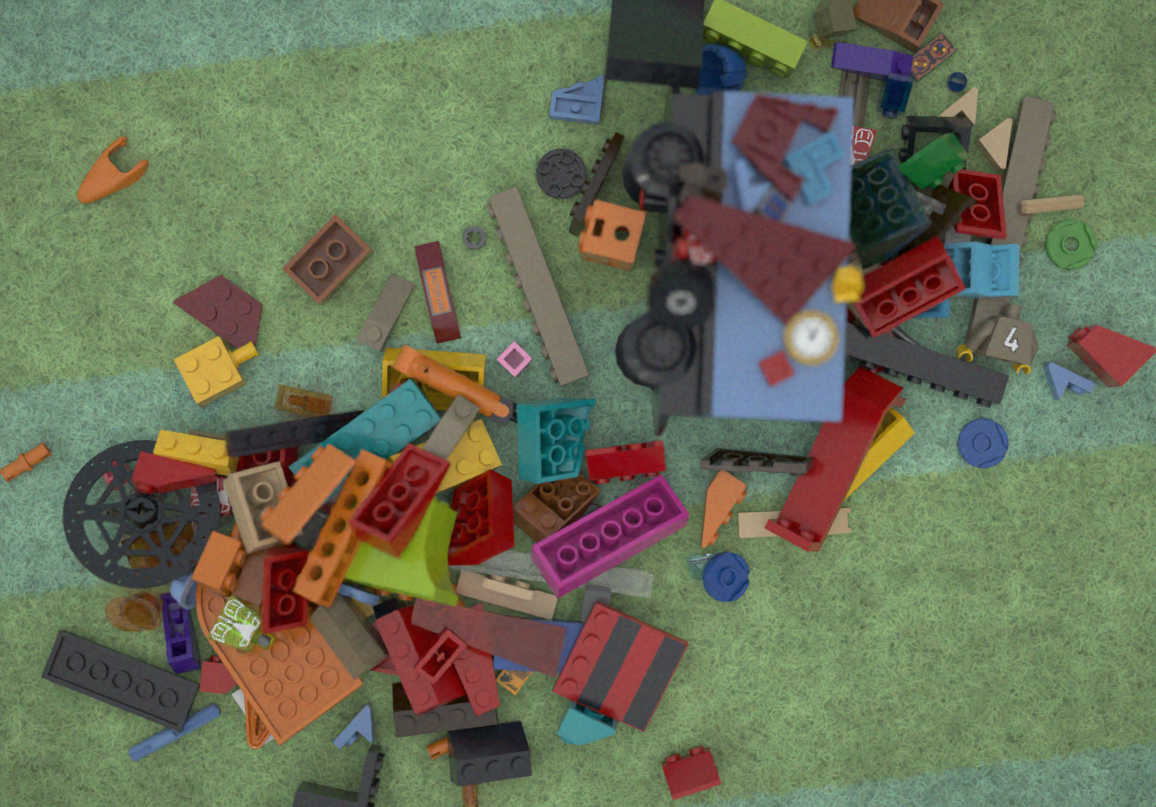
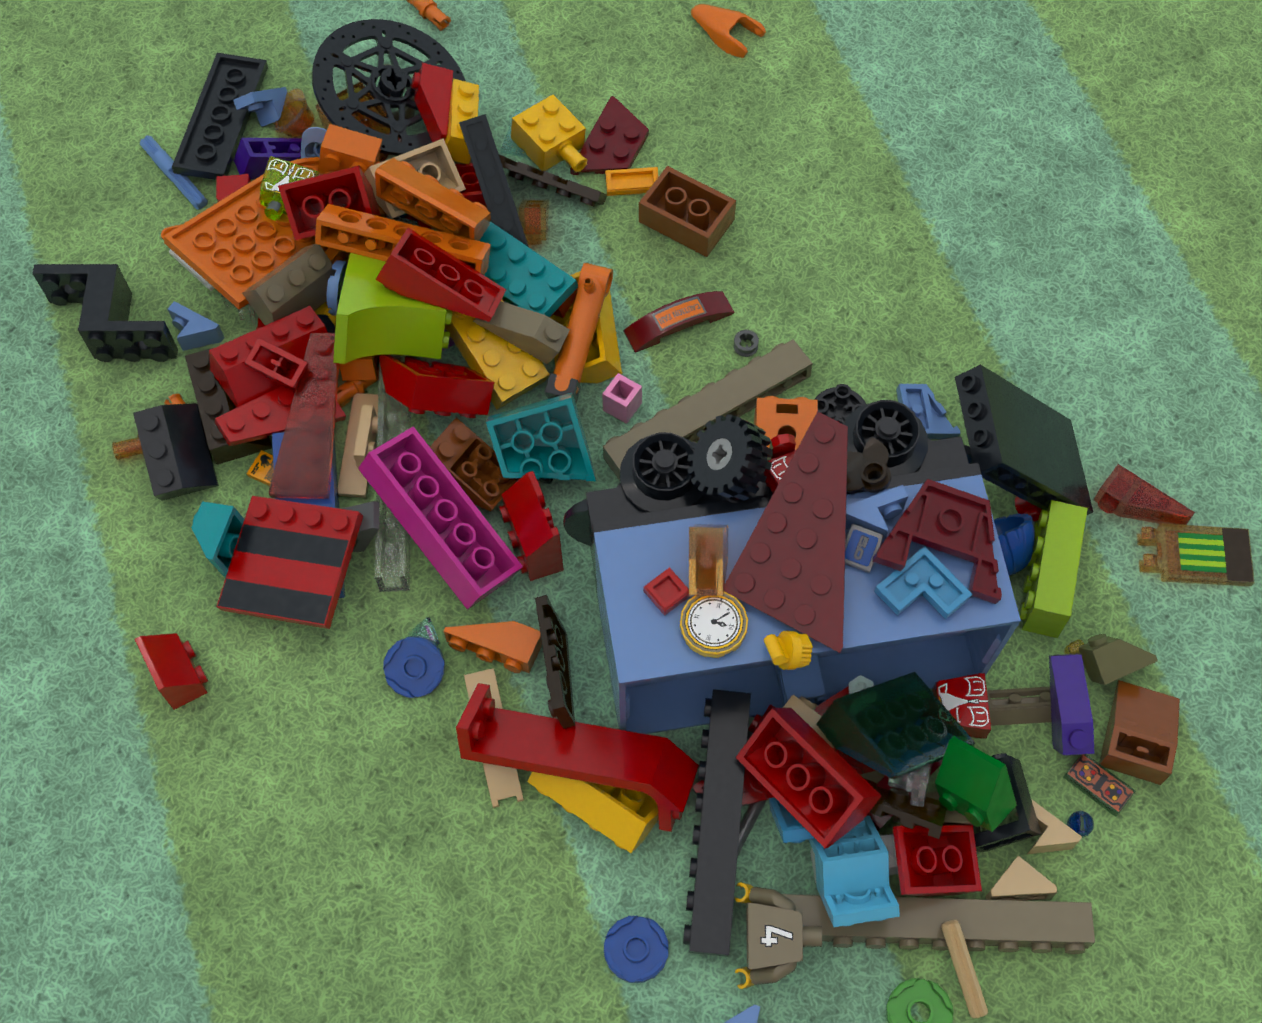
camera: 80 degrees right, 25 degrees down
(117, 637) = (266, 103): none -> medium blue slope
(262, 383) = (543, 179): none -> dark brown wing
(275, 302) = (630, 180): none -> light orange tile
(385, 313) = (643, 274): dark tan slope -> none
(762, 330) = (708, 559): none -> clear orange slope
(894, 95) = (1040, 742): slope -> none

